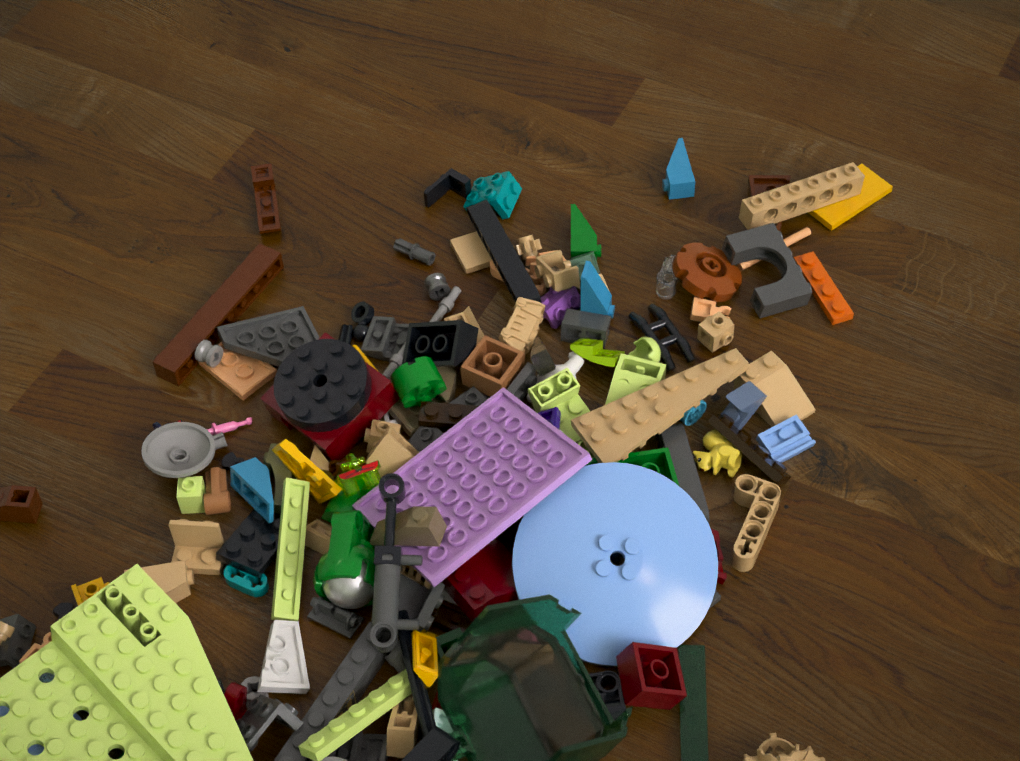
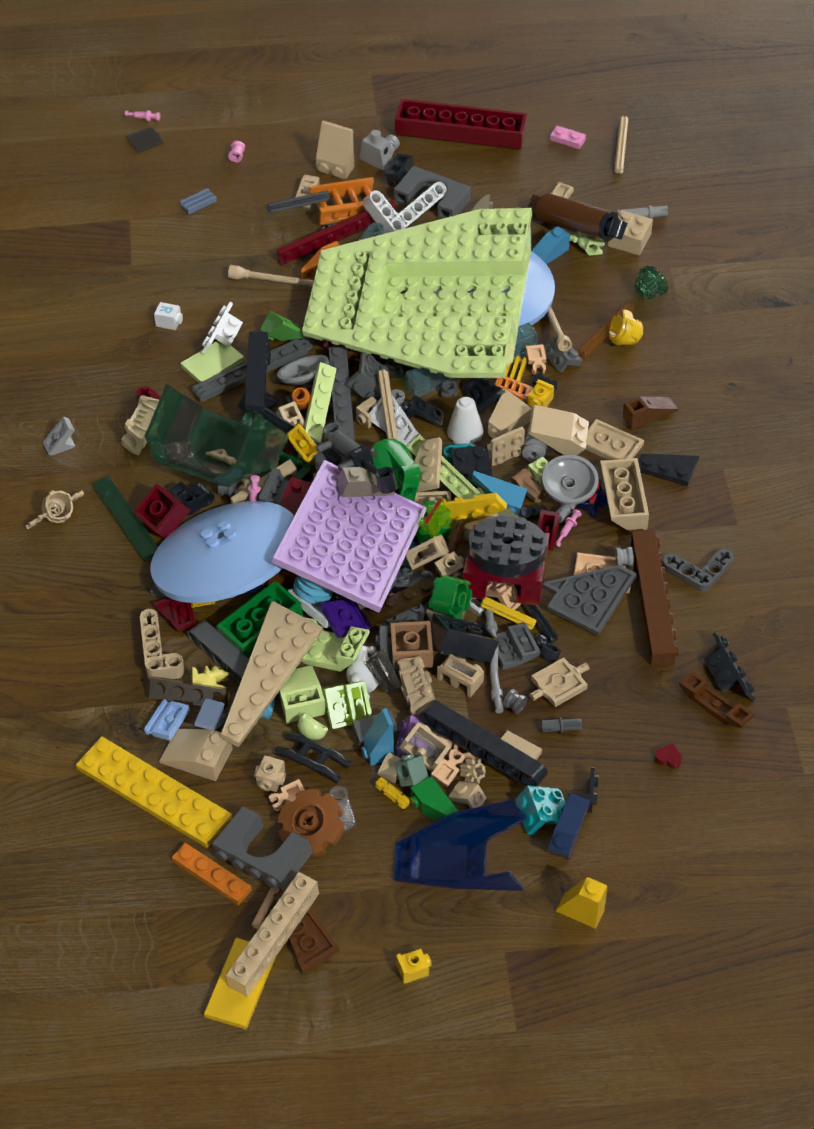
camera: 145 degrees right, 0 degrees up
(56, 438) = (669, 467): none -> black wing
(80, 500) = (612, 442): none -> tan tile
(124, 518) = (559, 429): none -> tan slope
(134, 415) = (625, 493): none -> tan slope
(149, 314) = (702, 574): none -> dark grey beam
(153, 536) = (533, 448): none -> light grey piece
(211, 601) = (465, 423): none -> white cone
(229, 222) = (725, 669): none -> black bracket
(237, 699) = (397, 379): dark red beam -> none
(241, 653) = (423, 409): none -> black bracket
(248, 430) = (549, 524): none -> dark red slope
(284, 659) = (387, 404): none -> tan axle
(298, 566) = (430, 464): none -> tan wing
(303, 696) = (363, 411): none -> tan bracket
(348, 187) = (669, 756): none -> dark red tile
(370, 741) = (302, 398): none -> orange brick
(381, 285) = (559, 682): none -> tan plate
(492, 159) = (568, 827): none -> dark blue slope
(524, 723) = (221, 455): none -> tan hand
(525, 106) = (584, 902): none -> yellow slope
(548, 235) = (468, 794): none -> tan bracket
(609, 184) = (455, 850): none -> clear blue windscreen
(611, 272) = (392, 793): none -> yellow axle
(679, 174) = (400, 915): dark azure slope -> none
(696, 140) = (413, 965): none -> yellow brick
(839, 386) = (154, 792): none -> yellow plate

